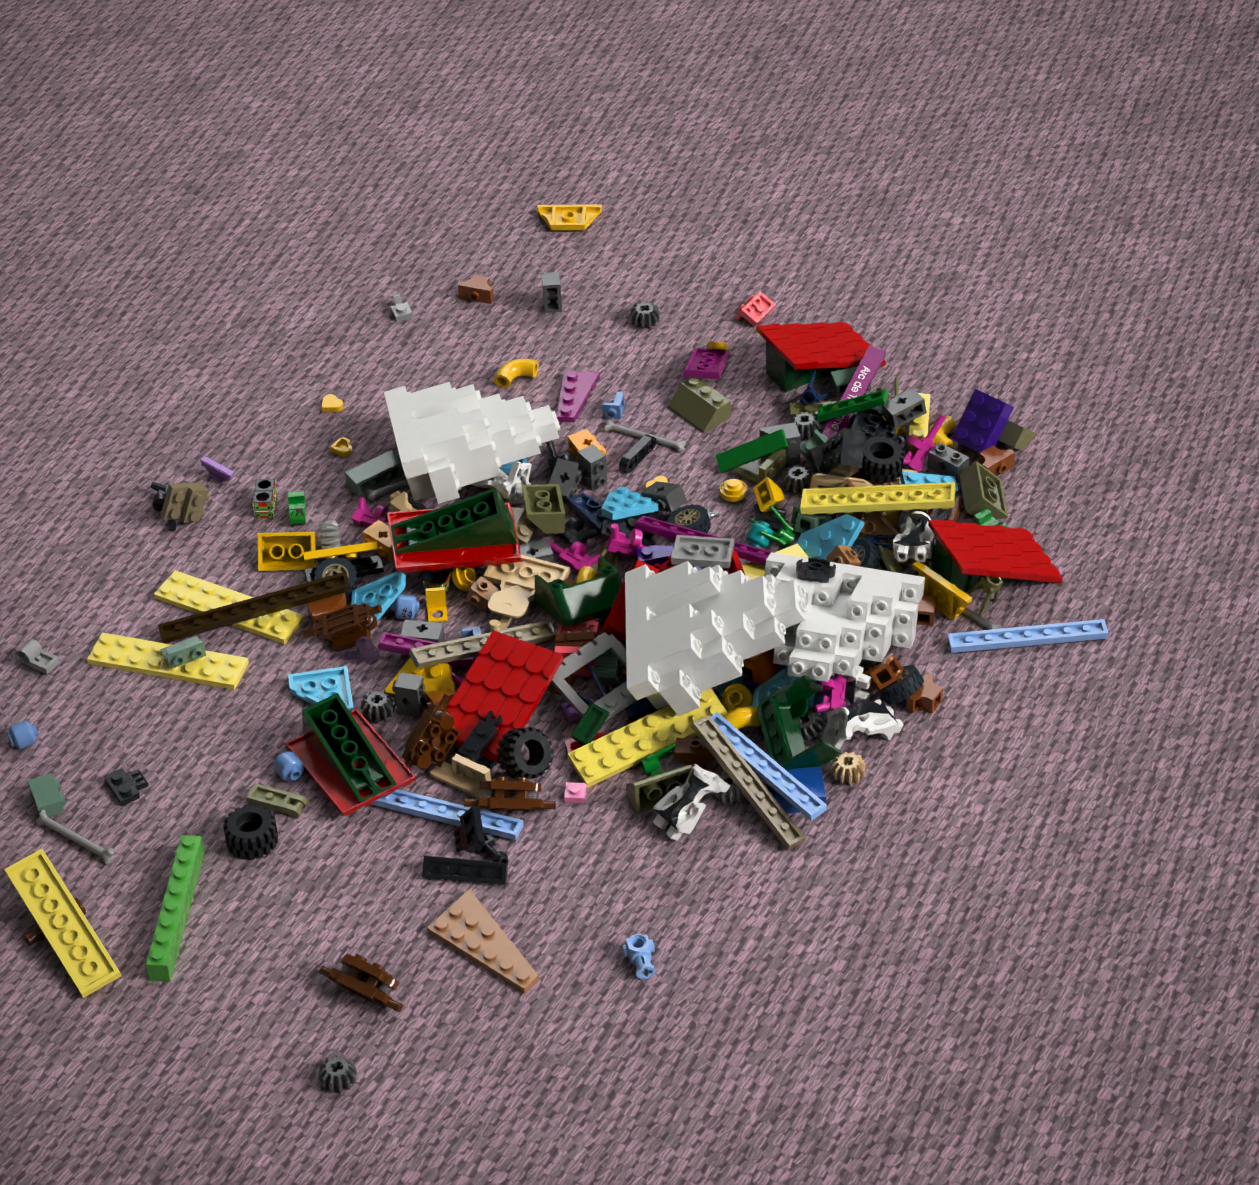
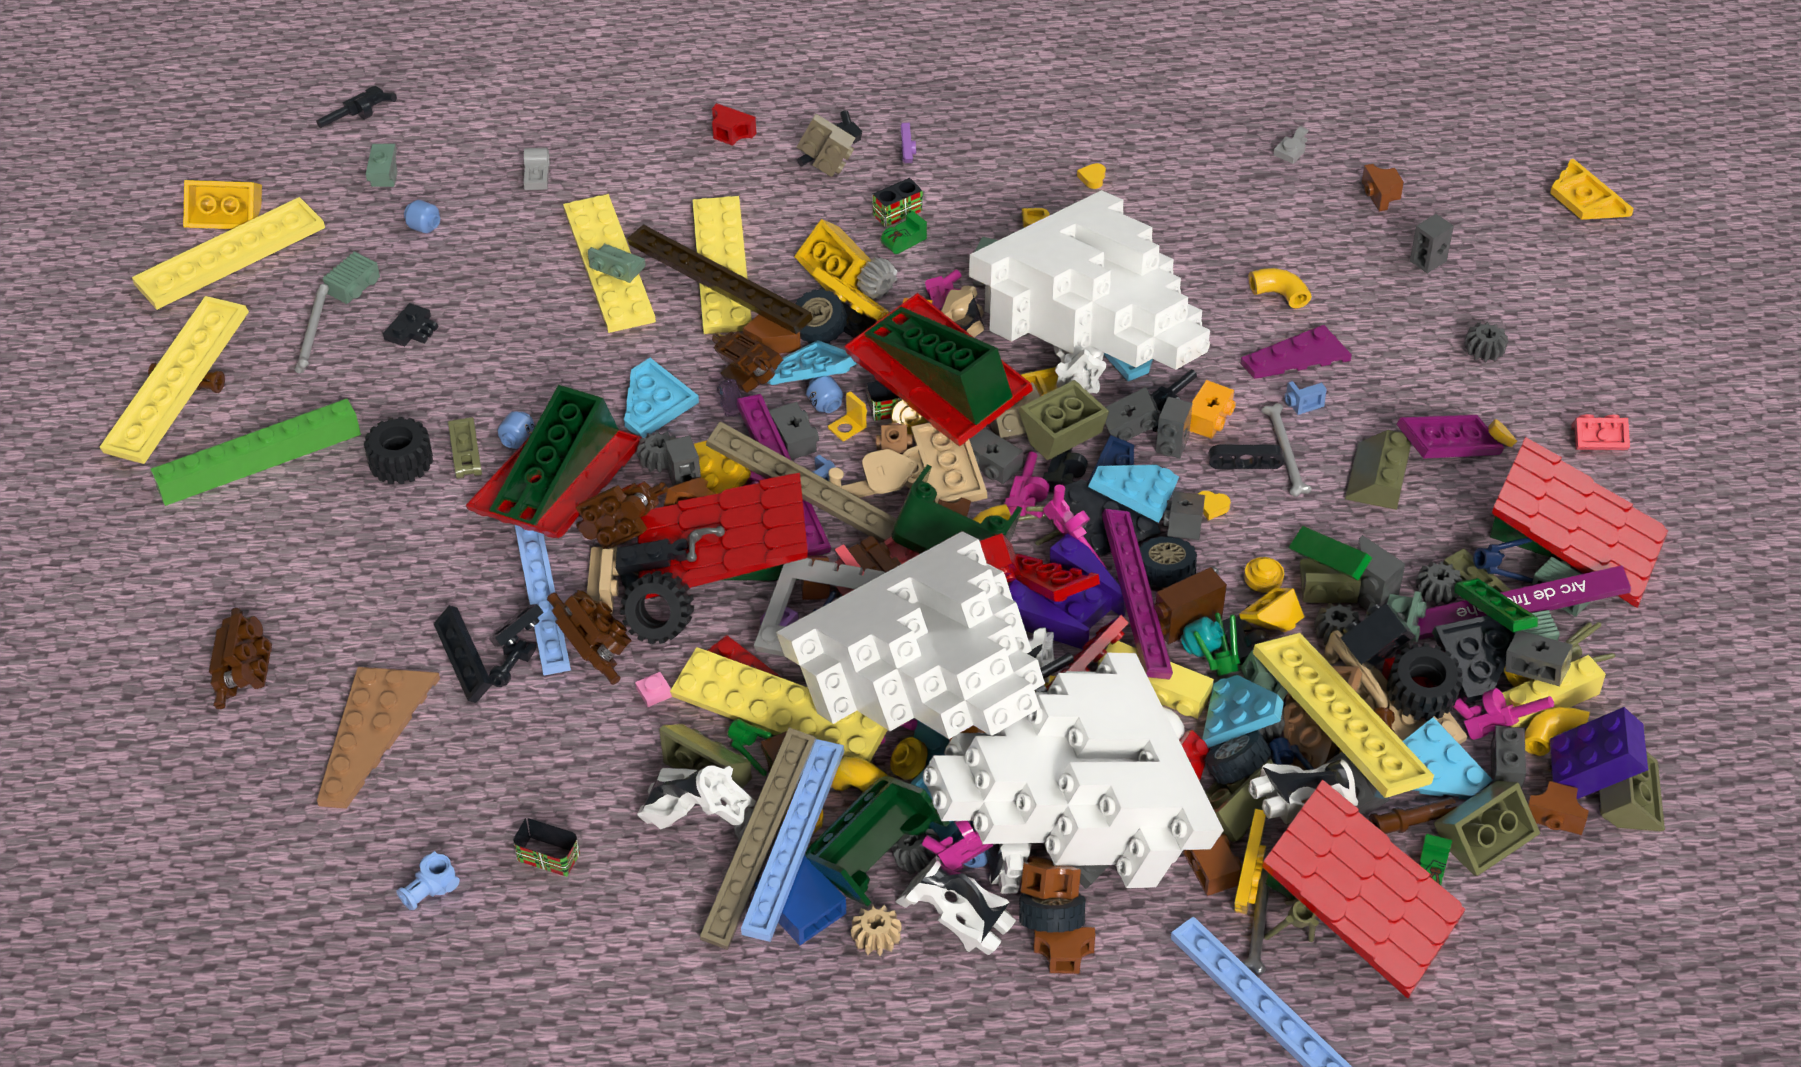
camera: 55 degrees right, 5 degrees up
(99, 543) = (732, 125): none -> red brick
(337, 1073) = (99, 704): dark grey gear -> none
(490, 704) = (696, 535): none -> dark grey piece
(590, 724) = (748, 641): dark green tile -> none
(658, 881) = (550, 835): none -> piece
(703, 551) = (1086, 589): light grey plate -> none
(735, 519) = (1188, 601): none -> reddish brown brick
(815, 569) = (1112, 705): black plate -> none
(844, 555) = (1207, 737): medium nougat brick -> none

